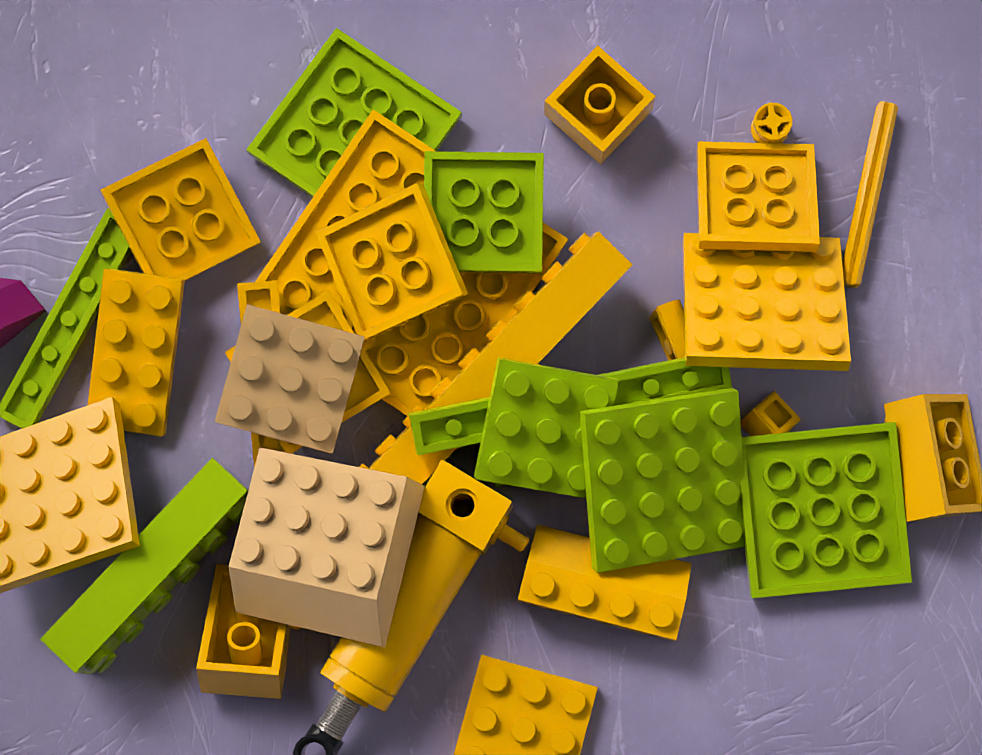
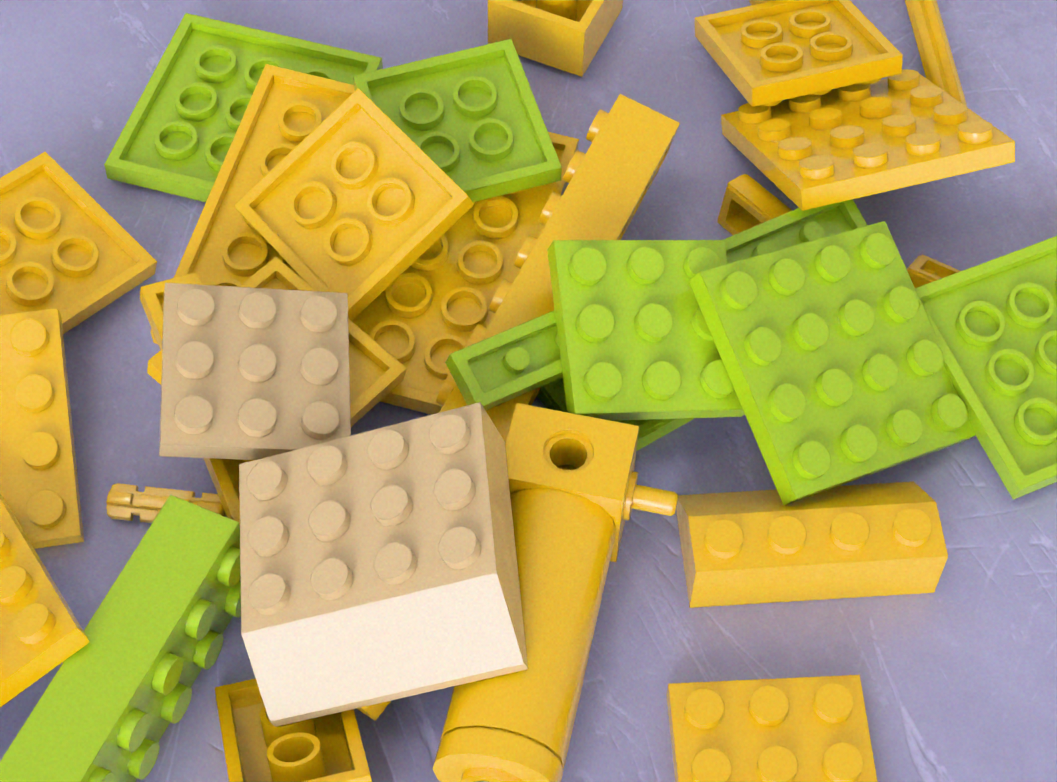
camera: 25 degrees left, 25 degrees down
(225, 435) = (126, 501): none -> yellow axle

